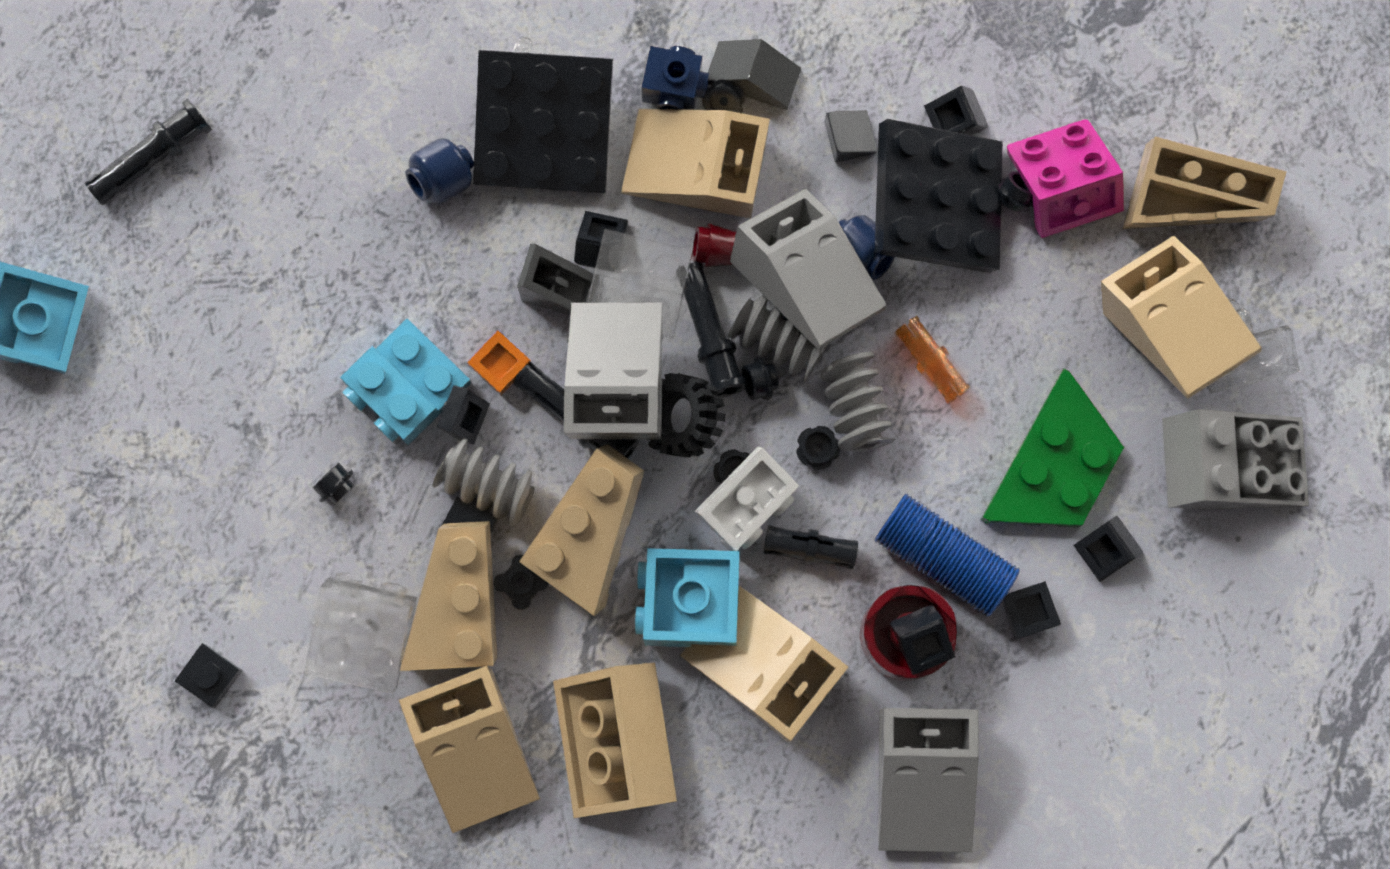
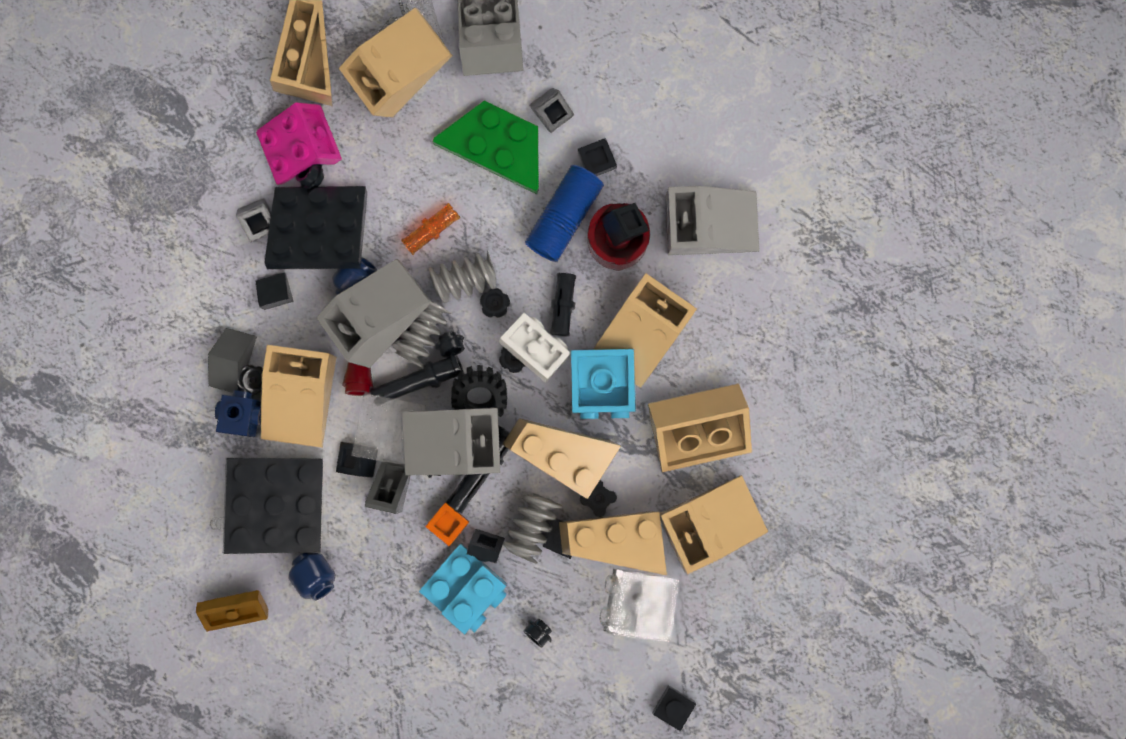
camera: 90 degrees left, 5 degrees up
(400, 62) = (232, 610): none -> pearl gold plate

